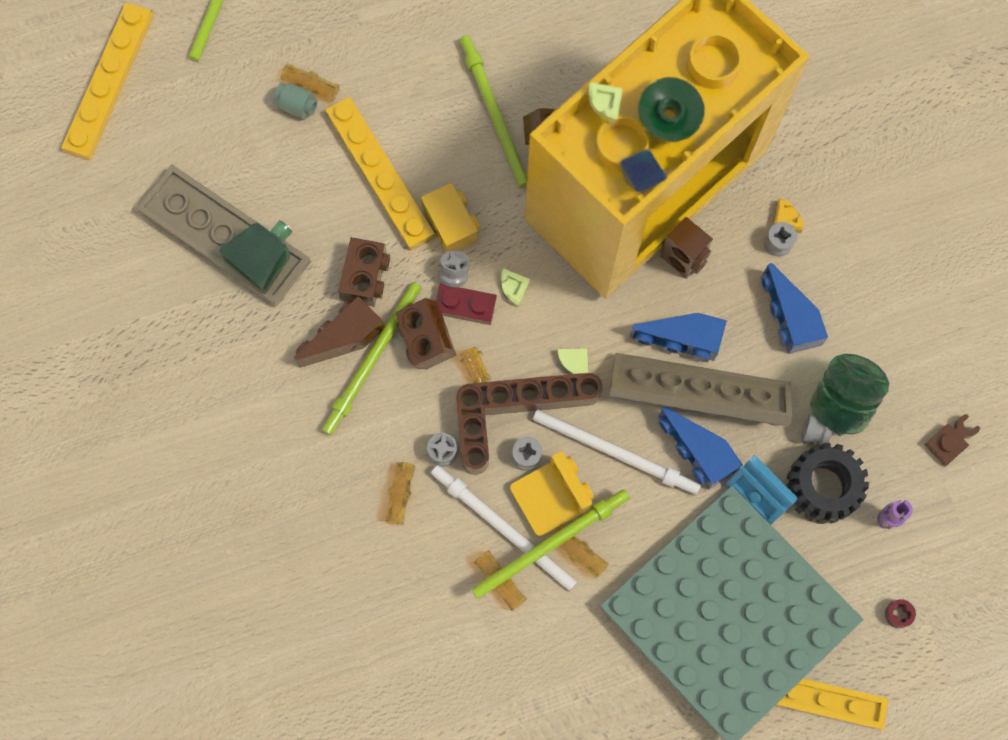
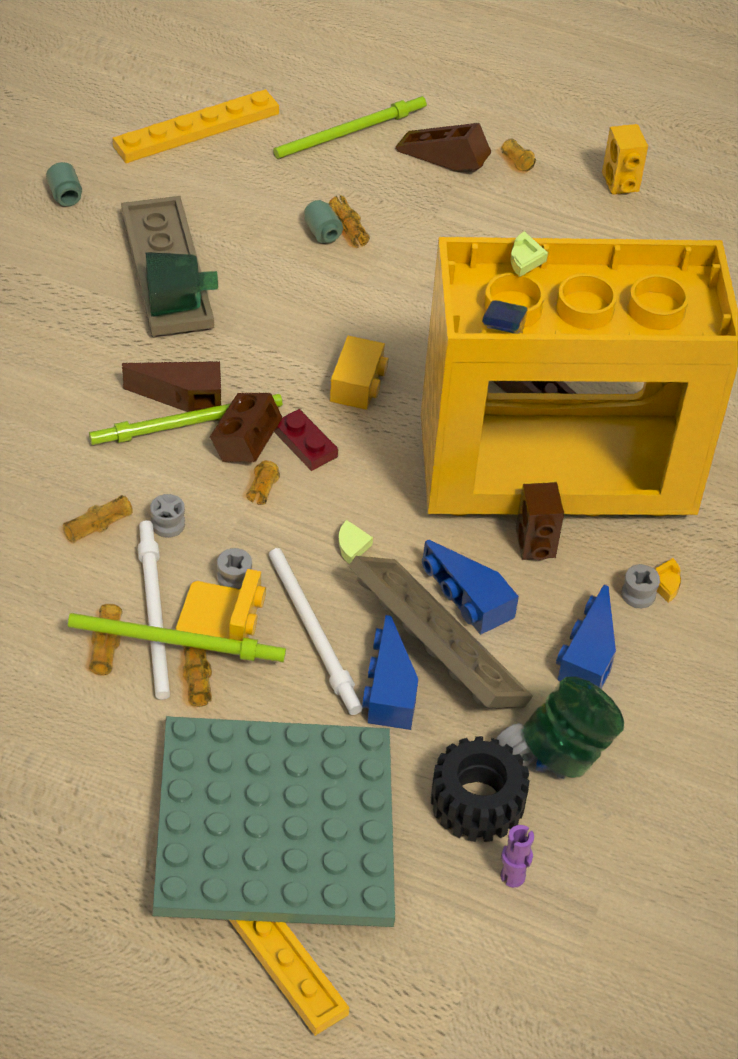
camera: 40 degrees right, 25 degrees down
(73, 224) = (64, 183): none -> sand green brick
(357, 271) = (247, 356): reddish brown brick -> none
(380, 173) = (336, 312): yellow plate -> none
(454, 268) = (322, 404): light grey wheel -> none
(513, 286) = (361, 457): yellowish green tile -> none
(514, 404) = (266, 520): reddish brown beam -> none
(677, 97) = (574, 289): dark green dish -> none
(762, 489) = (411, 746): dark azure plate -> none
(907, 608) = (441, 944): dark red bush -> none
(950, 441) = (643, 861): reddish brown plate -> none

